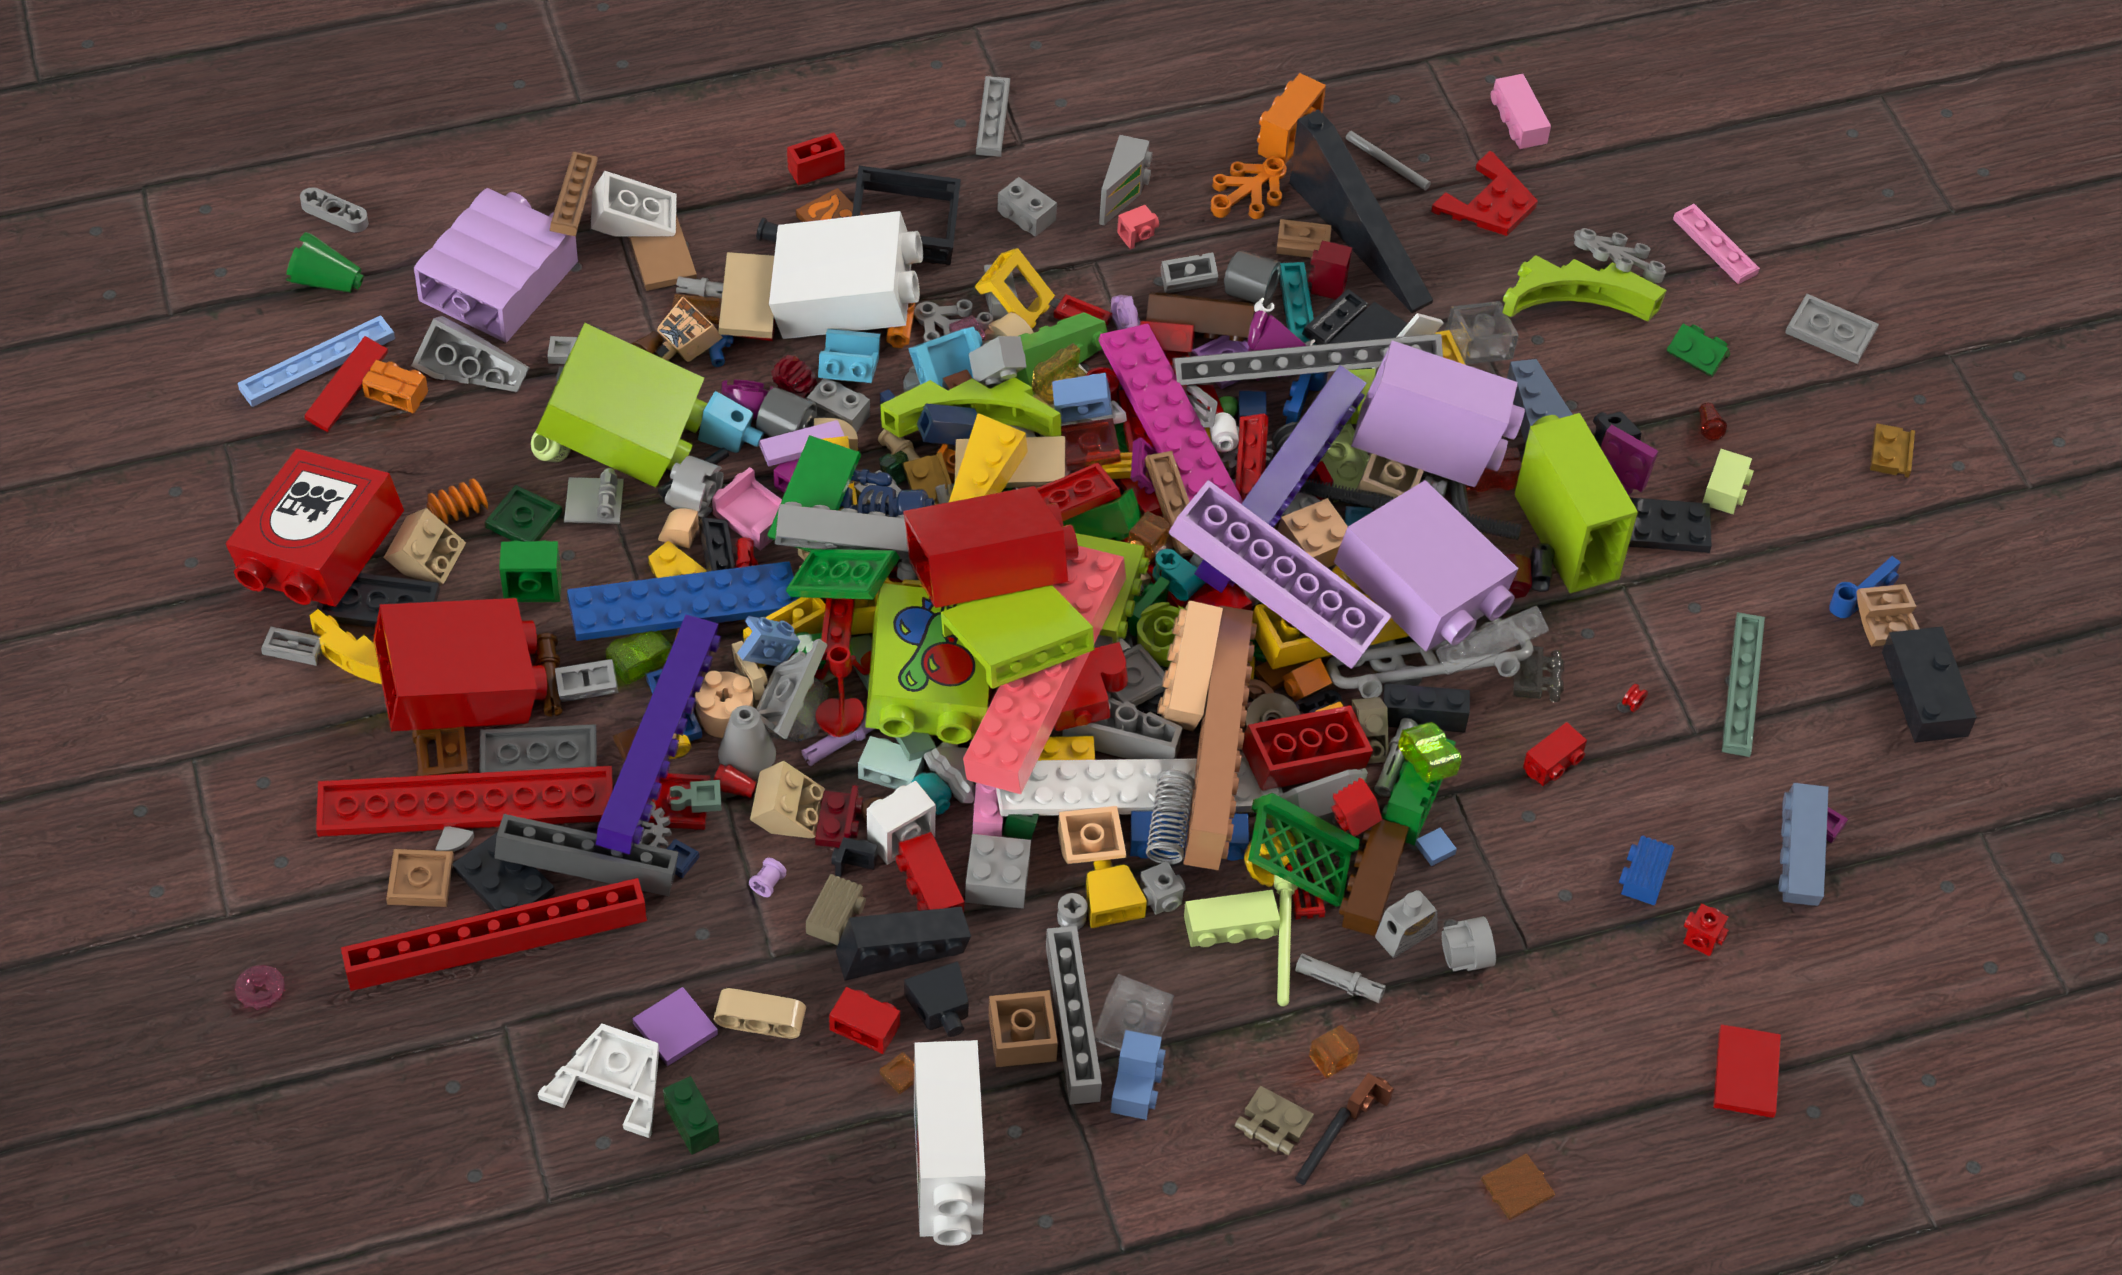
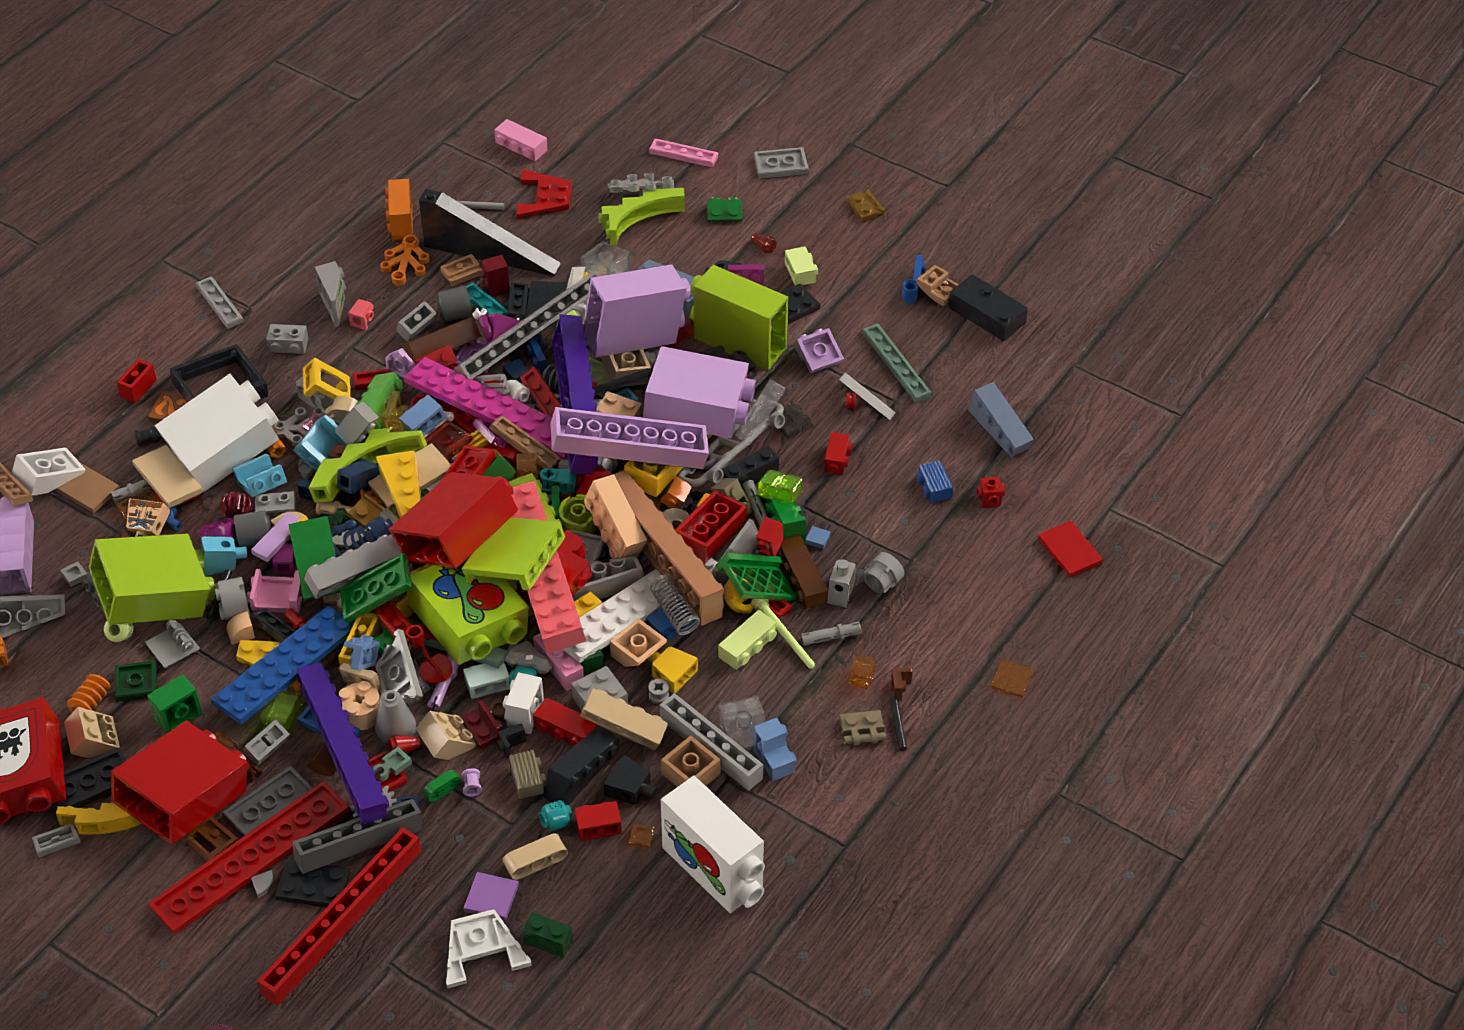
camera: 35 degrees left, 5 degrees down
(420, 878) = (261, 916): medium nougat tile -> none
(732, 859) = (441, 786): none -> green beam
(822, 980) = (555, 815): none -> teal head
(992, 917) = (624, 719): none -> tan brick
(1162, 888) = (699, 646): light grey brick -> none
(1652, 606) = (818, 350): none -> lavender plate
(1661, 704) = (867, 396): none -> white beam

